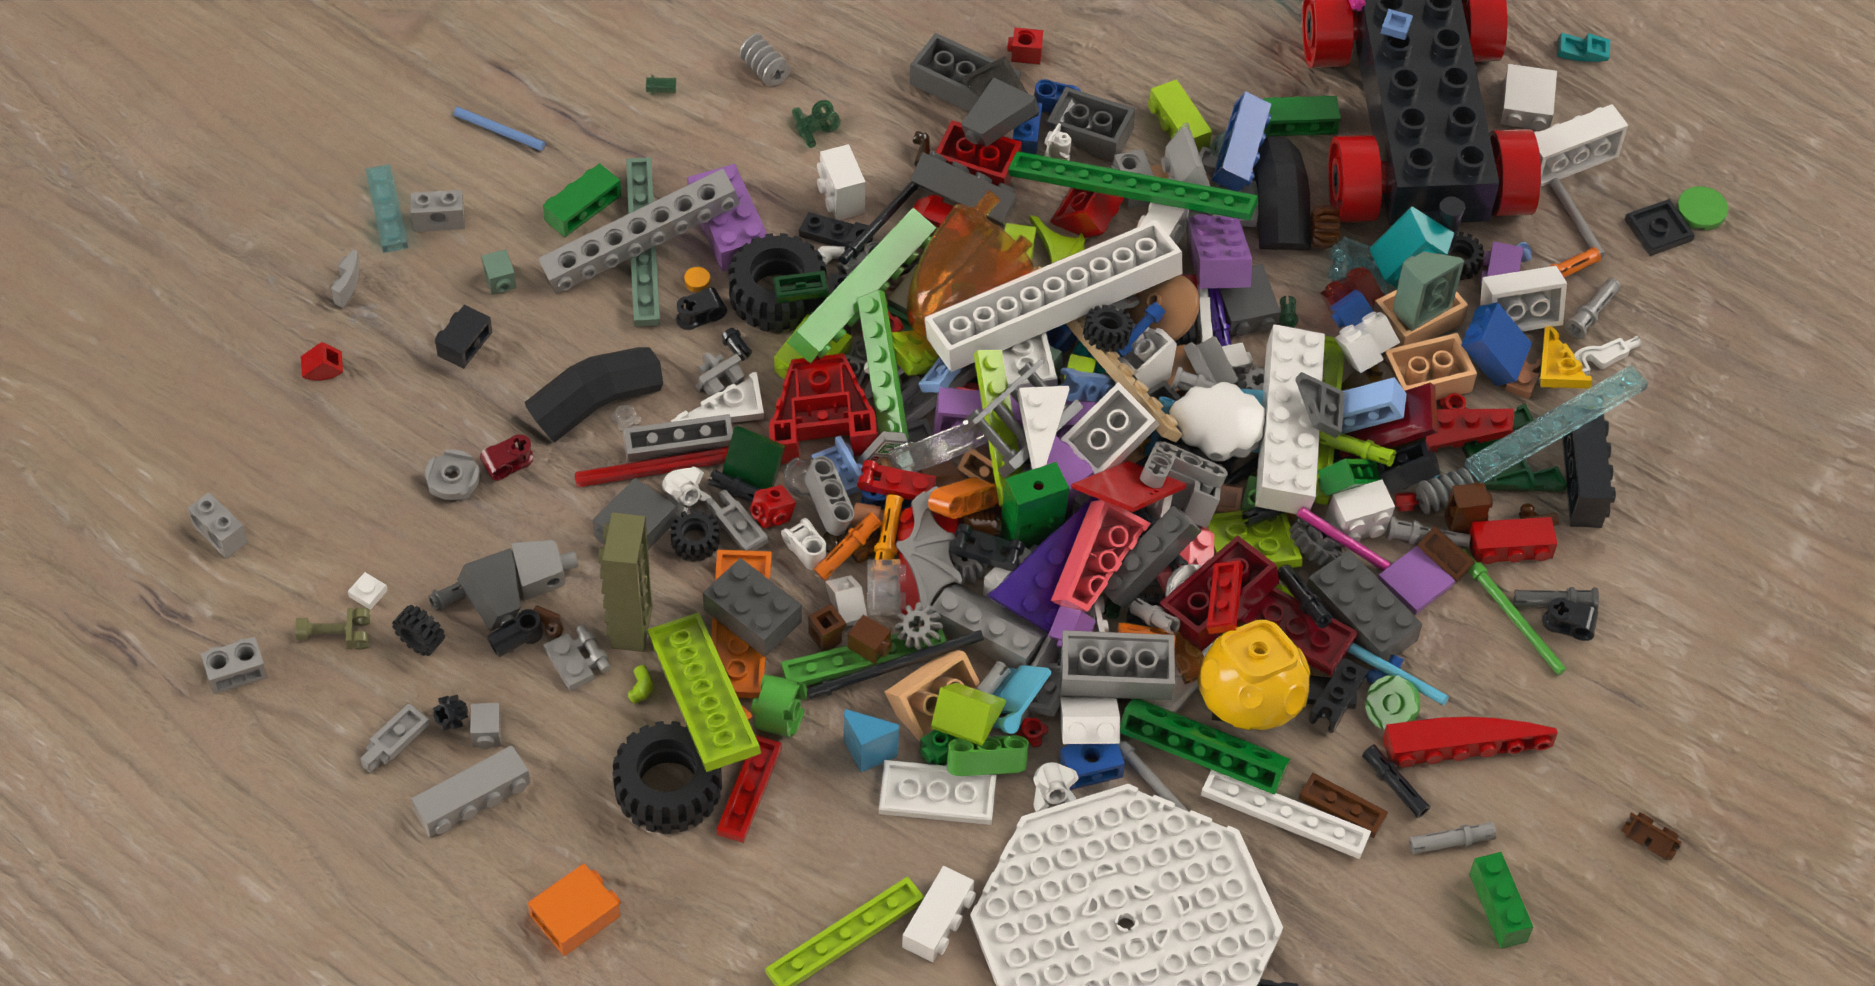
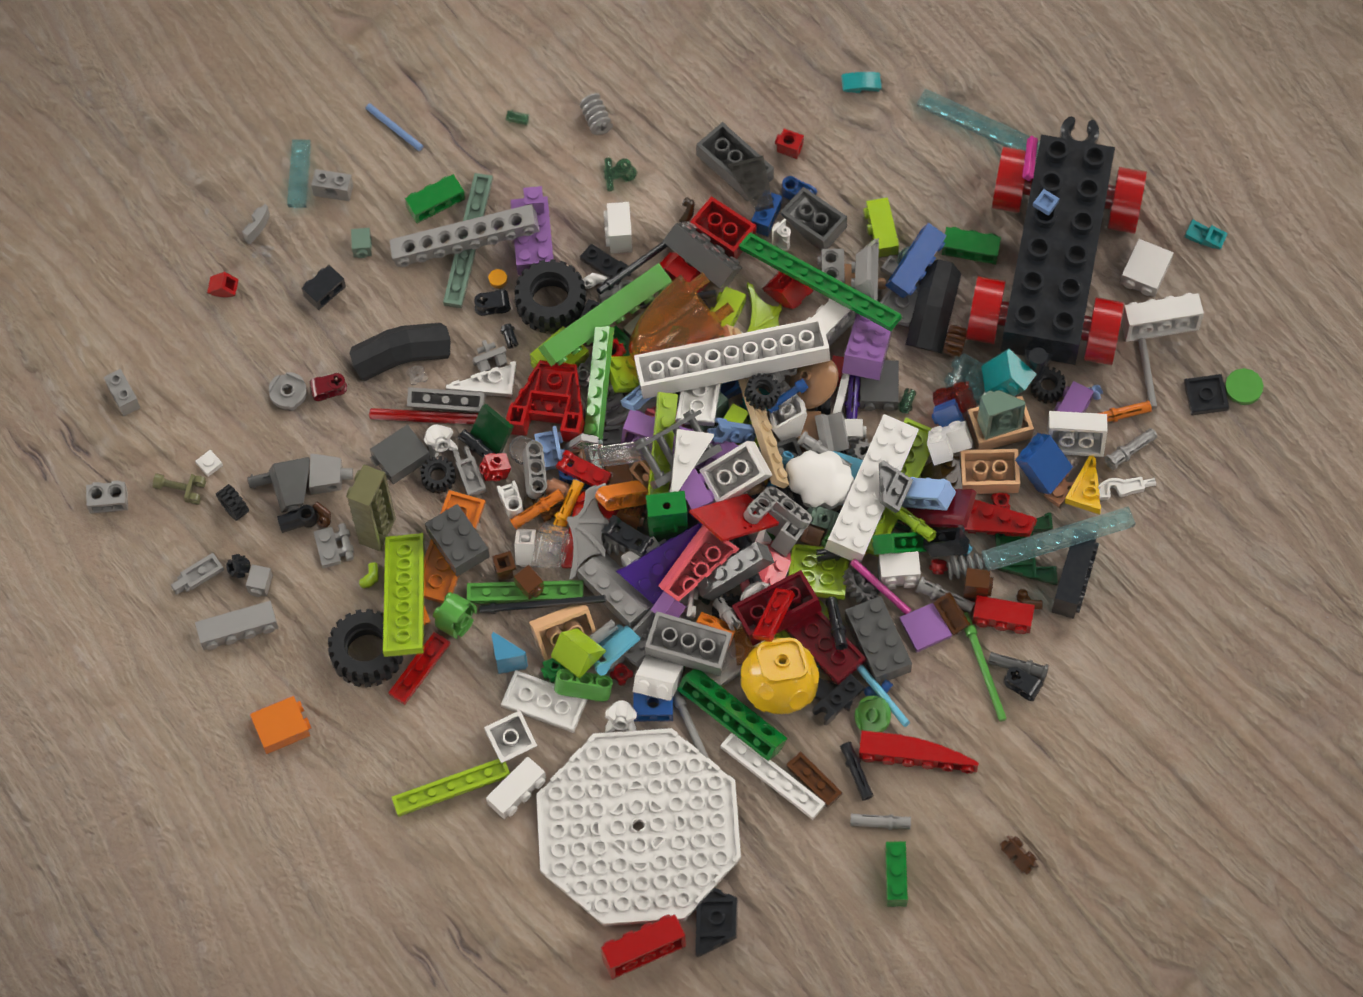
camera: 20 degrees right, 10 degrees up
(722, 159) = (534, 196): none -> medium lavender brick
(801, 290) = (566, 311): dark green tile -> none
(909, 846) = (510, 736): none -> white slope
(925, 632) = (564, 574): light grey gear -> none
(998, 112) = (741, 201): dark grey slope -> none
(1239, 469) = (823, 517): none -> sand green brick

